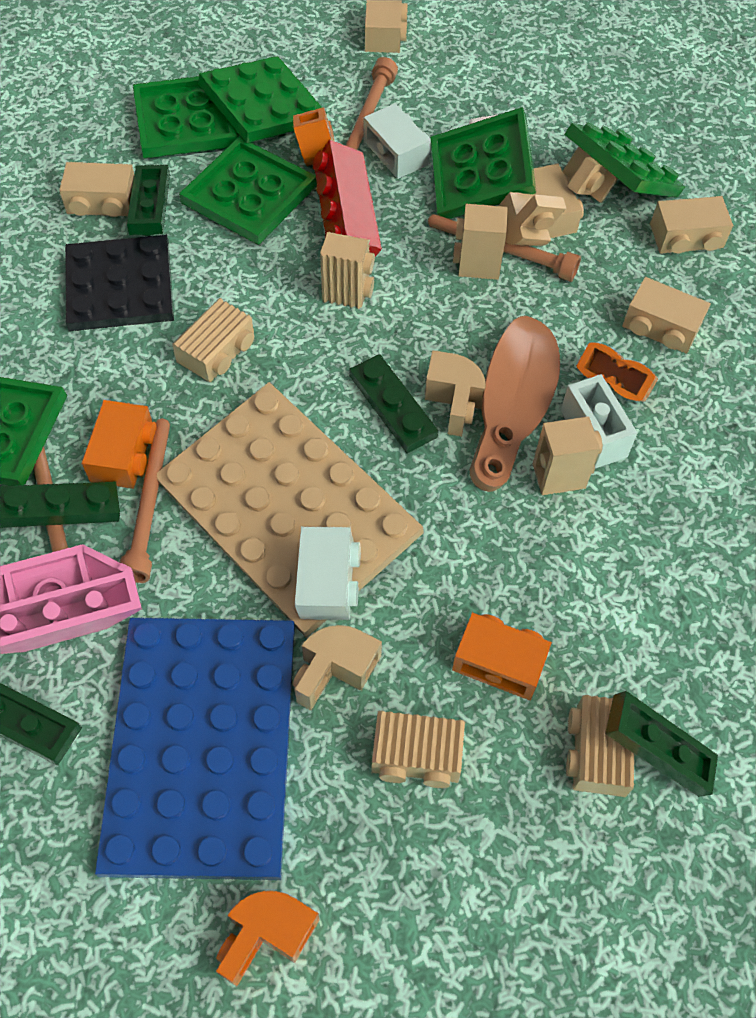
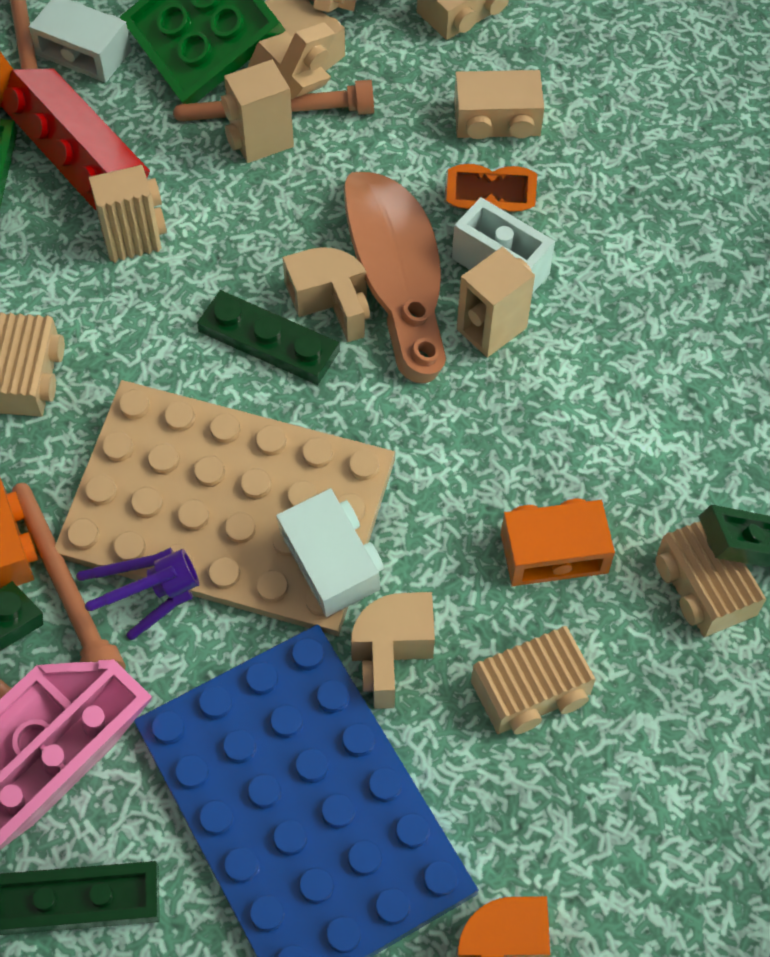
camera: 30 degrees left, 0 degrees up
(212, 532) = (170, 576): none -> dark purple plant

